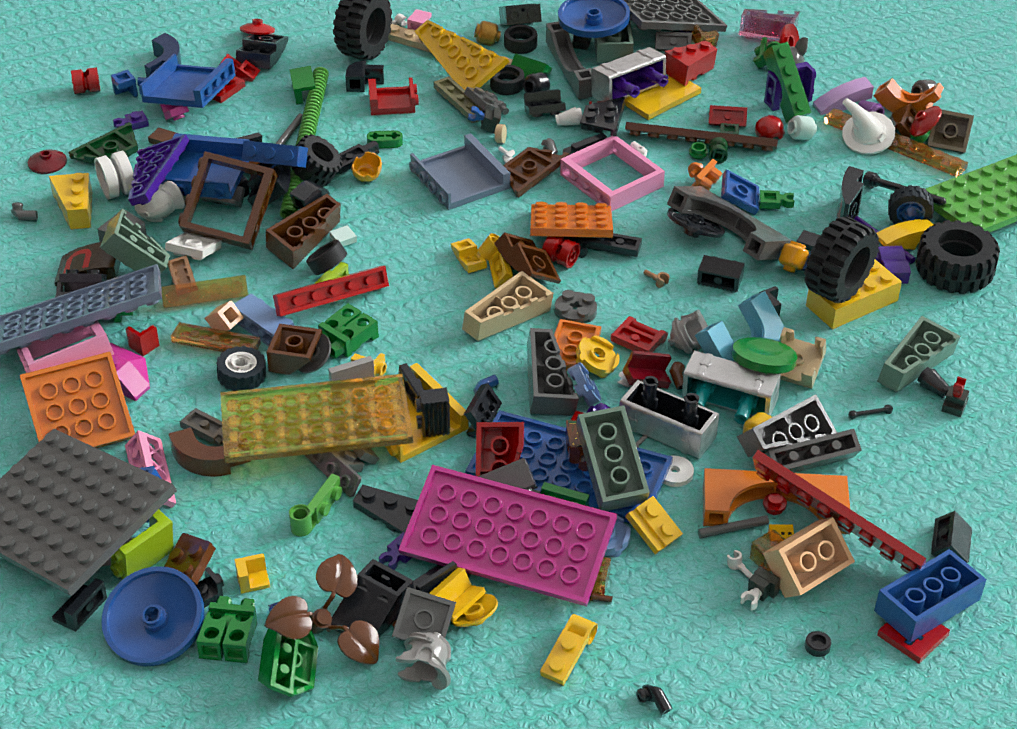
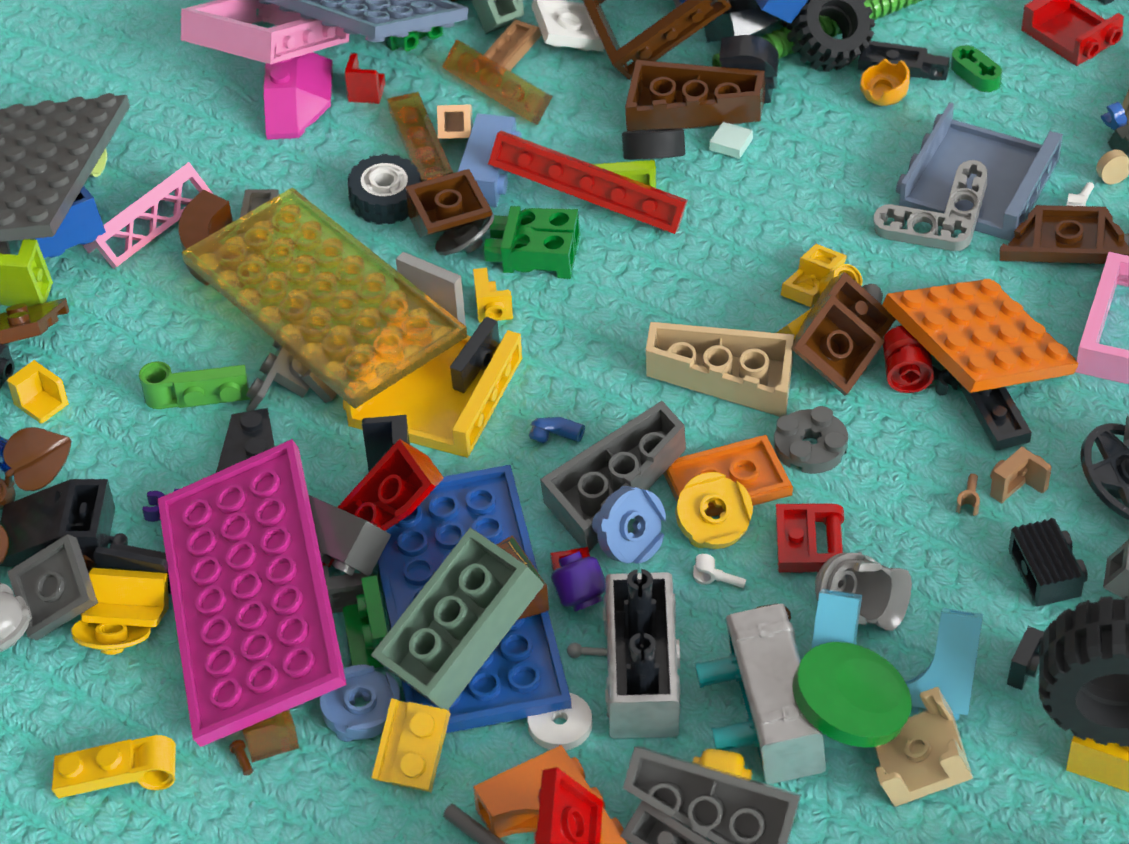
camera: 60 degrees right, 5 degrees up
(79, 400) = (185, 91): orange plate -> none
(434, 412) = (425, 396): black brick -> none
(456, 442) = (382, 434): none -> black panel
(480, 198) = (950, 221): none -> light grey beam
(482, 407) = (486, 444): black bracket -> none
(645, 364) = (726, 579): dark red panel -> none
(661, 253) = (1016, 471): none -> medium nougat bracket

